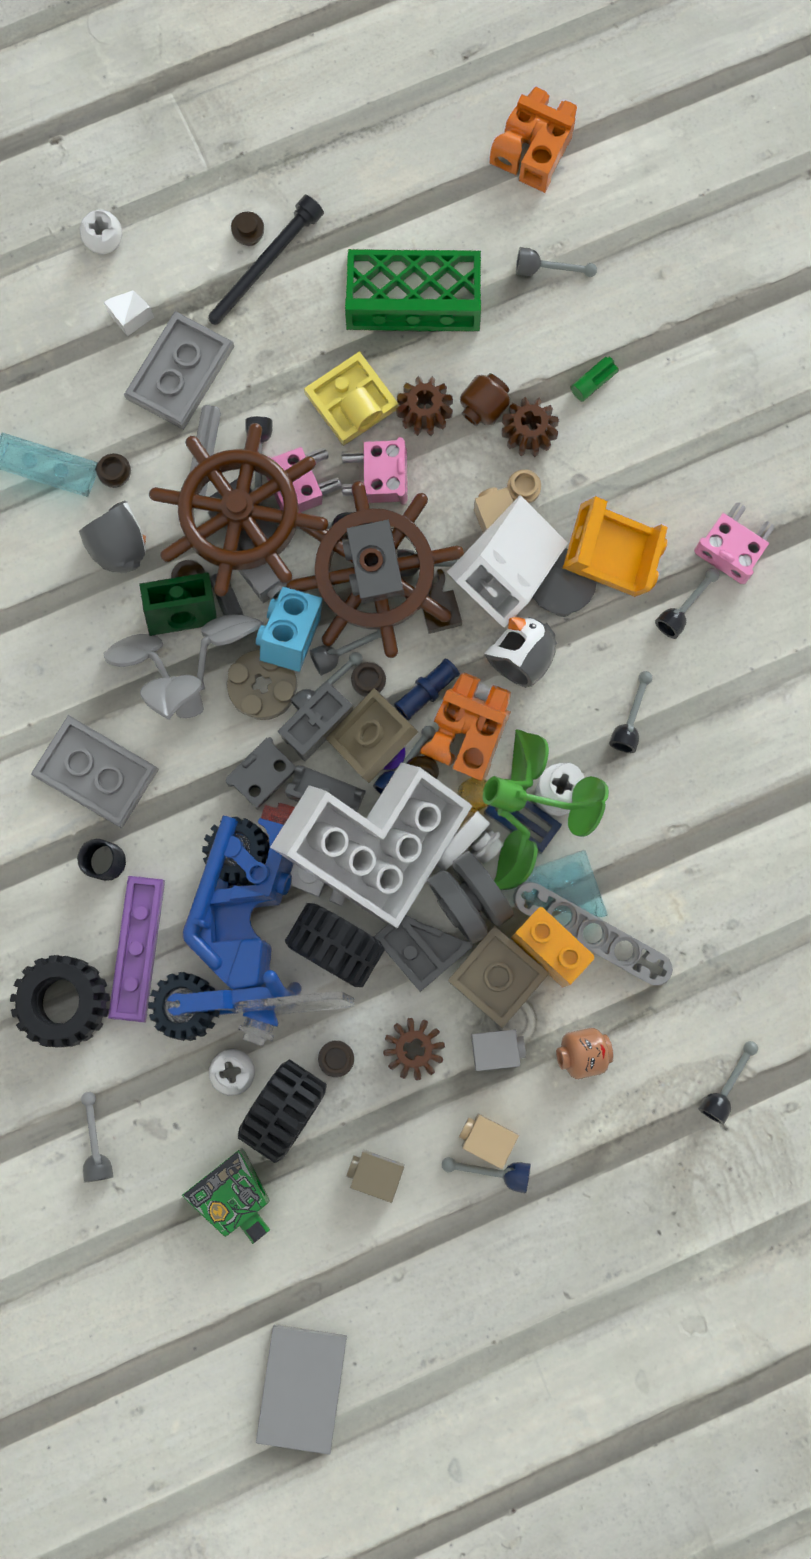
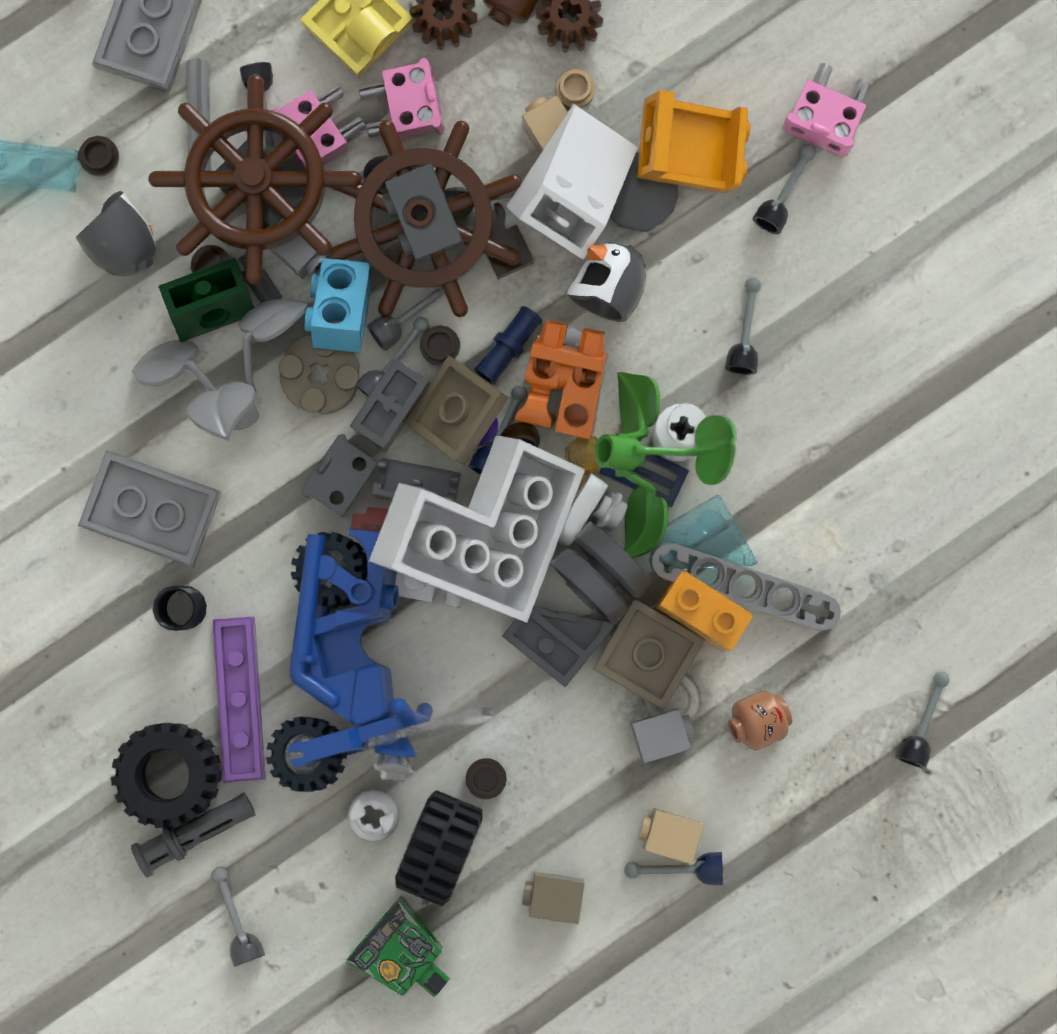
camera: 15 degrees left, 5 degrees up
(56, 1062) = (176, 842): none -> dark grey pin
(335, 944) = (461, 654): black tyre -> none
(418, 1060) = (578, 763): reddish brown gear -> none

